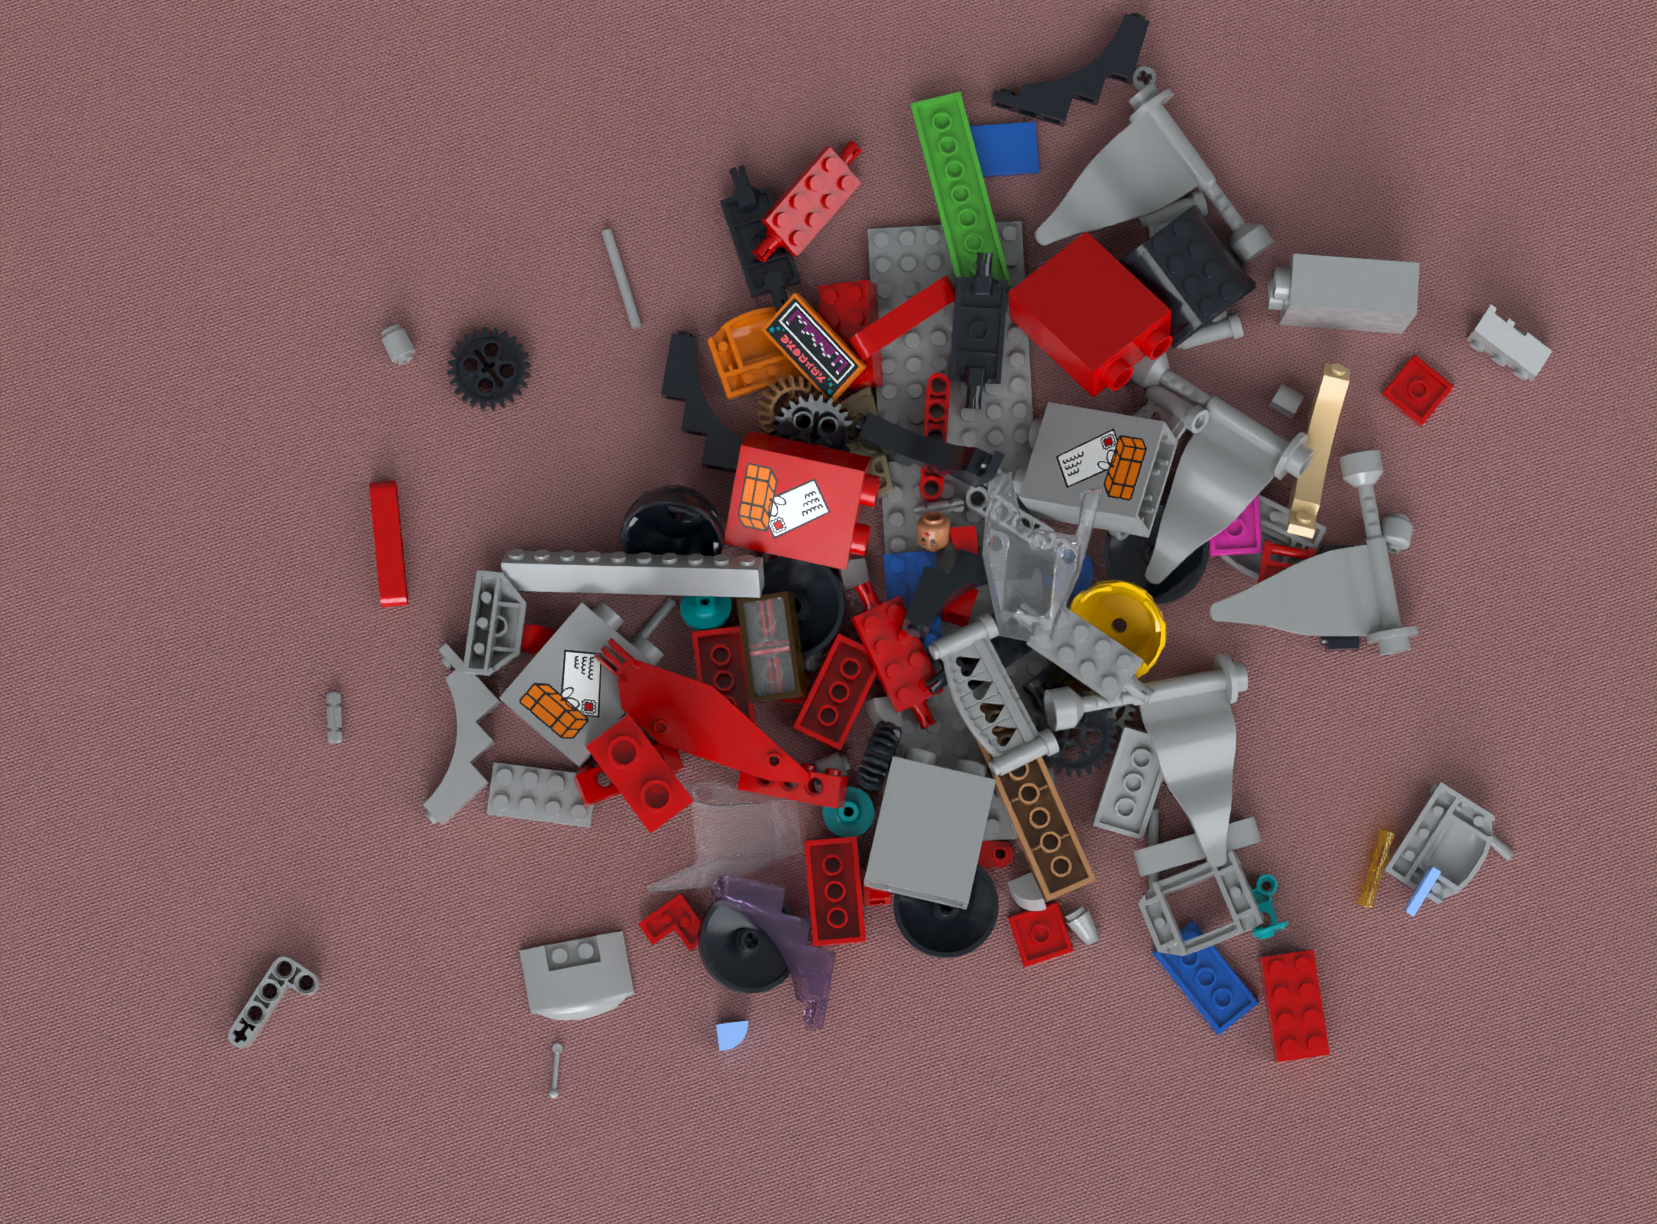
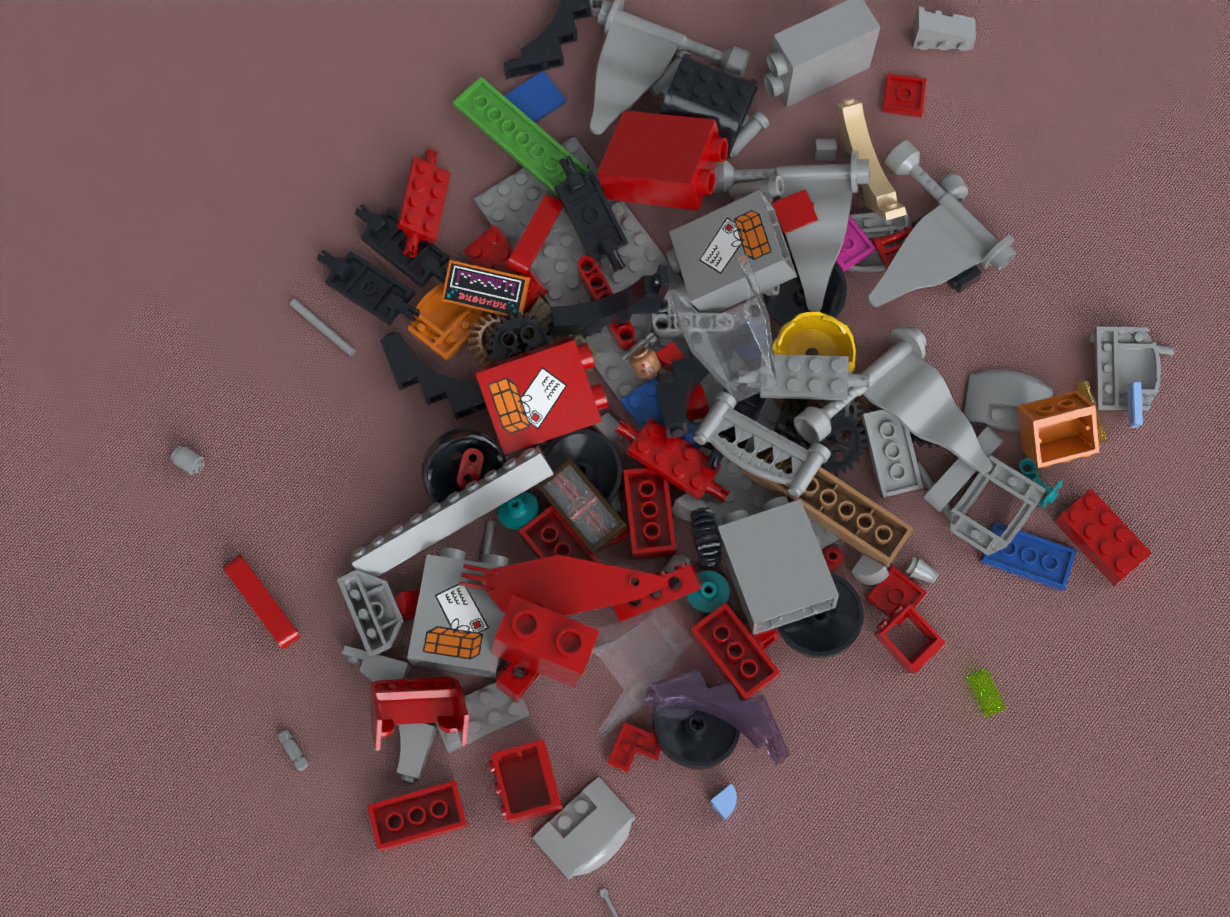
camera: 30 degrees left, 10 degrees down
(418, 861) = (417, 816): none -> red brick
(470, 382) = (255, 455): black gear -> none
(483, 747) = (417, 702): none -> red windscreen
(544, 893) = (525, 782): none -> red container
(683, 533) = (470, 467): none -> red plate
(695, 265) = (369, 287): none -> black plate
(1026, 1011) = (925, 653): none -> red window
(1066, 1089) = (986, 693): none -> clear neon green plate
(1197, 461) = (795, 211): none -> red piece
(1296, 803) = (995, 395): none -> light grey slope
(1320, 867) = (1058, 429): none -> orange container

